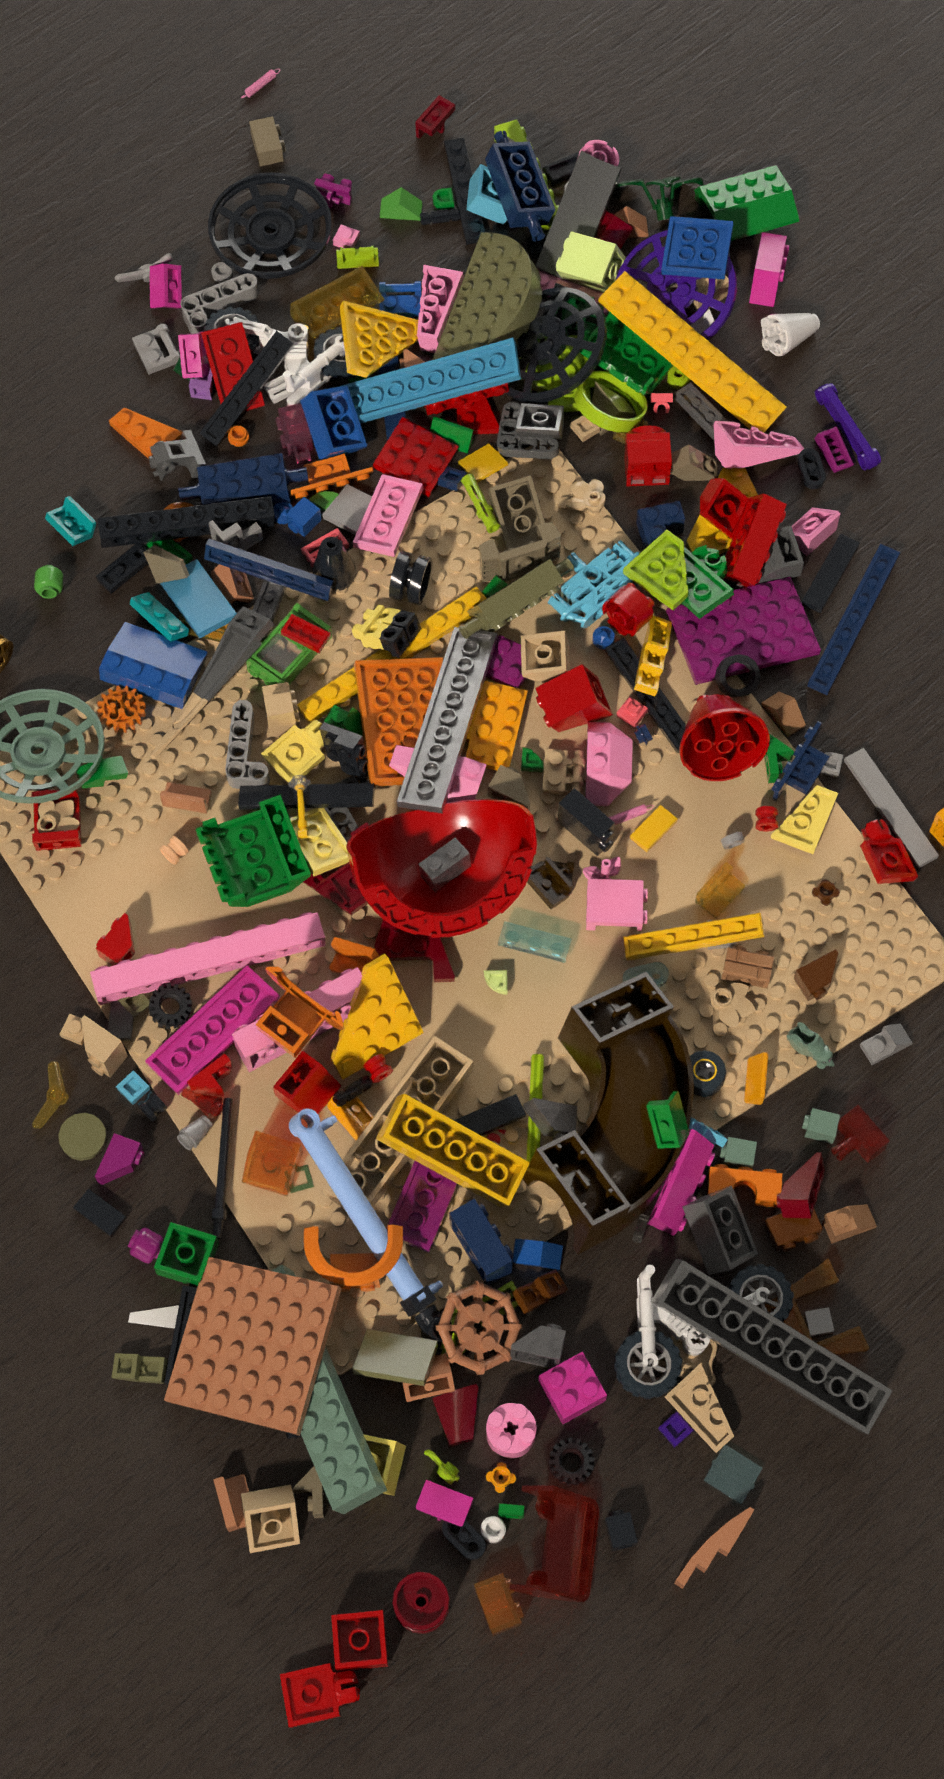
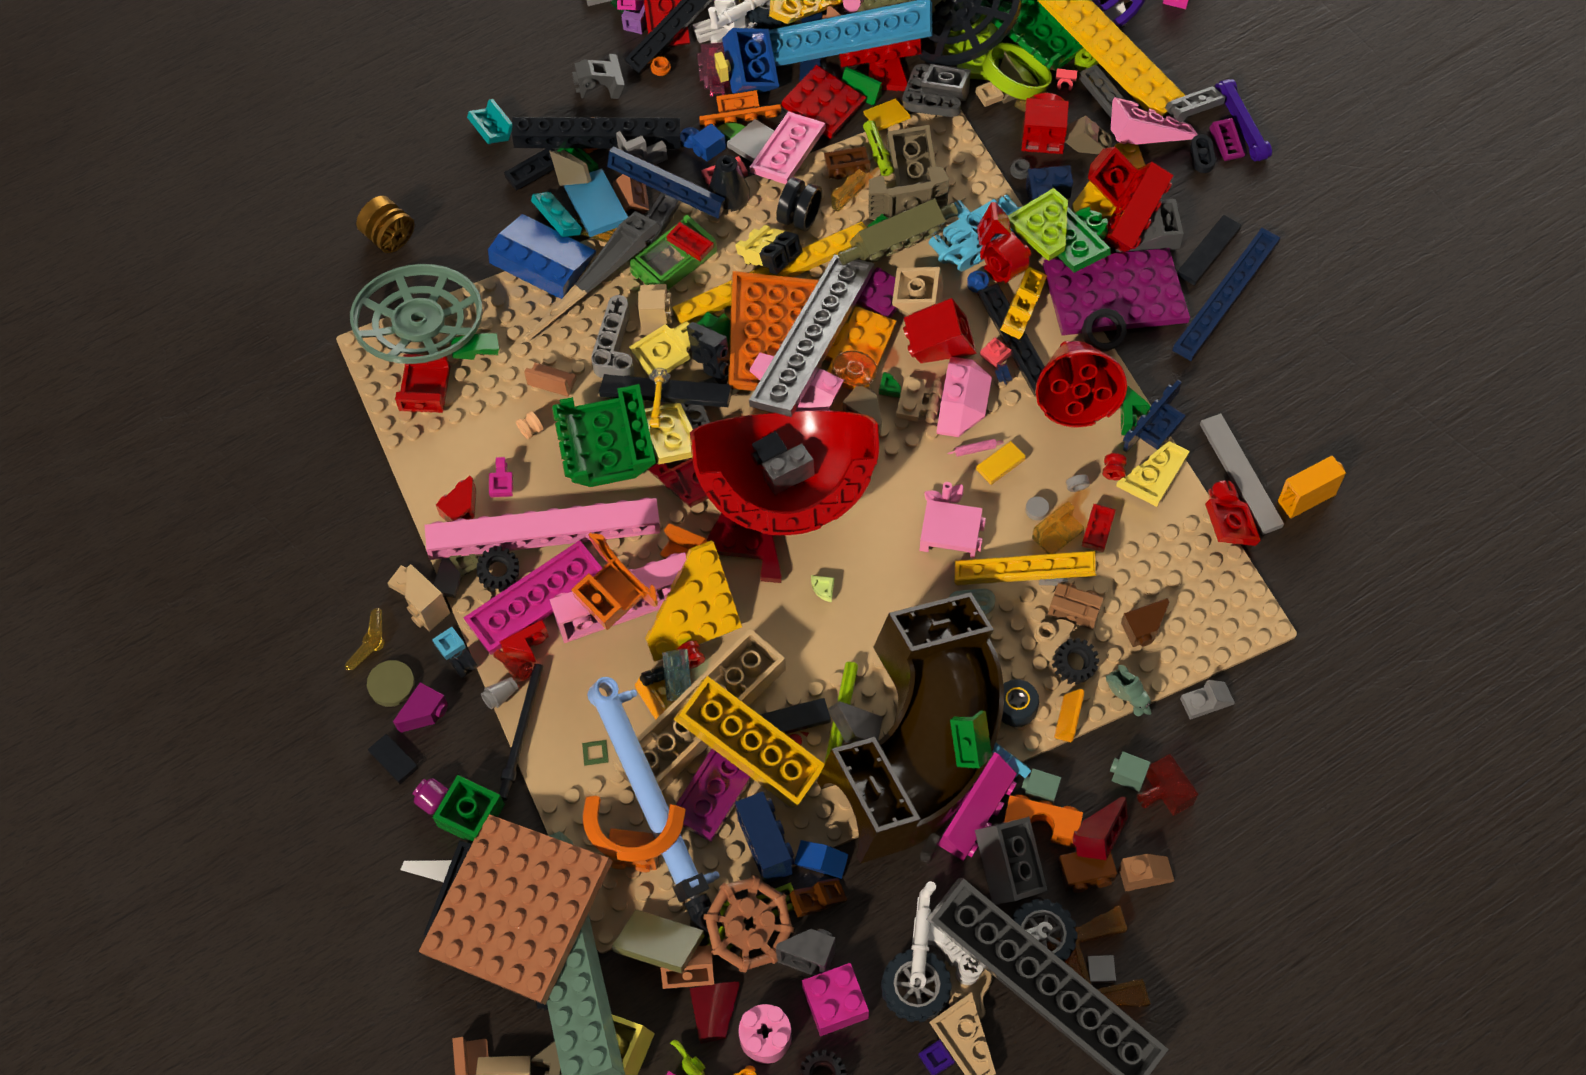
camera: 10 degrees right, 5 degrees down
(48, 581) = (459, 172): bright green head -> none
(59, 815) = (425, 379): tan plate -> none
(122, 721) = (516, 292): orange gear -> none
(139, 1368) = (401, 916): olive slope -> none
(142, 431) = (570, 51): orange wing -> none
(156, 914) = (502, 481): none -> dark pink plate
(244, 480) = (659, 101): dark blue brick -> none
(271, 1163) = (569, 732): clear orange slope -> none
(305, 433) = (722, 67): none -> light yellow plate
(306, 1085) = (616, 658): red slope -> none
(368, 1090) = (676, 673): none -> clear light blue plate
(421, 847) = (767, 448): none -> black brick
(451, 478) = (854, 124): dark blue plate -> none
(451, 524) = (846, 162): none -> reddish brown bracket
(460, 549) = (851, 187): none -> clear yellow plate
(497, 743) = (855, 368): none -> clear orange dish
(534, 942) = (866, 554): clear light blue plate -> none
(552, 881) = (891, 499): dark brown slope -> none
(586, 822) = (934, 446): black brick -> none
(587, 495) = (981, 152): tan plate -> none
(612, 577) = (993, 222): none -> red slope
(628, 507) = (1020, 168): none -> dark grey plate
(696, 871) = (1037, 508): none -> light grey tile
(743, 1030) = (1084, 651): none -> black tyre
(759, 884) = (1098, 528): none -> red plate
(785, 713) = (1146, 372): medium nougat slope -> none
(786, 331) = (1195, 28): white cone -> none
(796, 414) = (1195, 103): none -> dark grey plate
(815, 528) = (1200, 207): bright pink slope -> none
(828, 886) = (1167, 538): reddish brown plate -> none
(833, 765) = (1188, 426): light grey tile -> none

